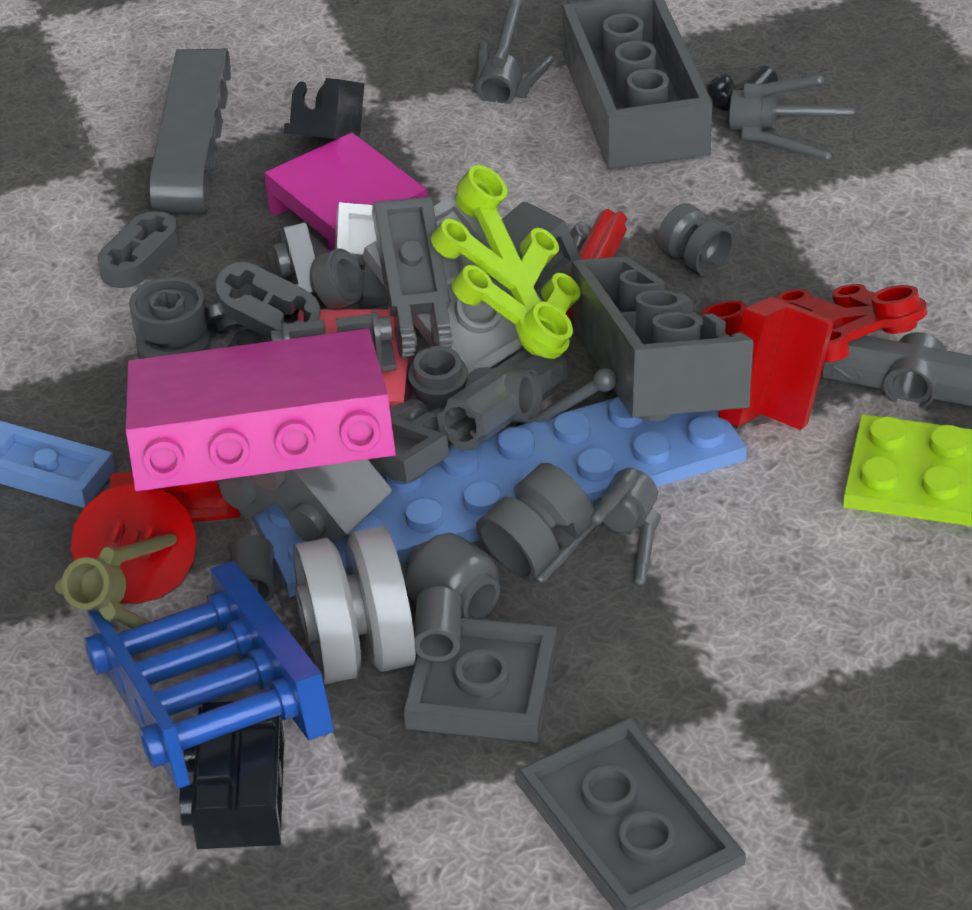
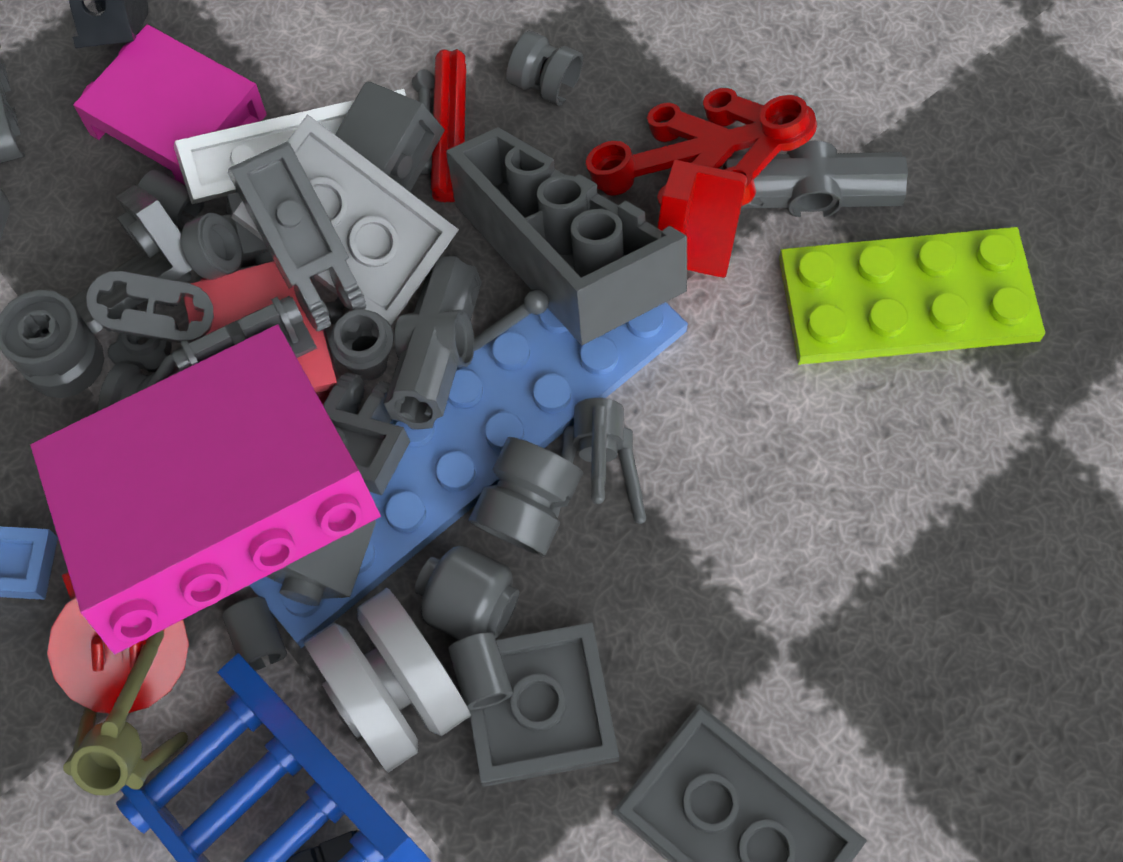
camera: 20 degrees left, 25 degrees up
(540, 325) = (445, 249): lime plant -> none

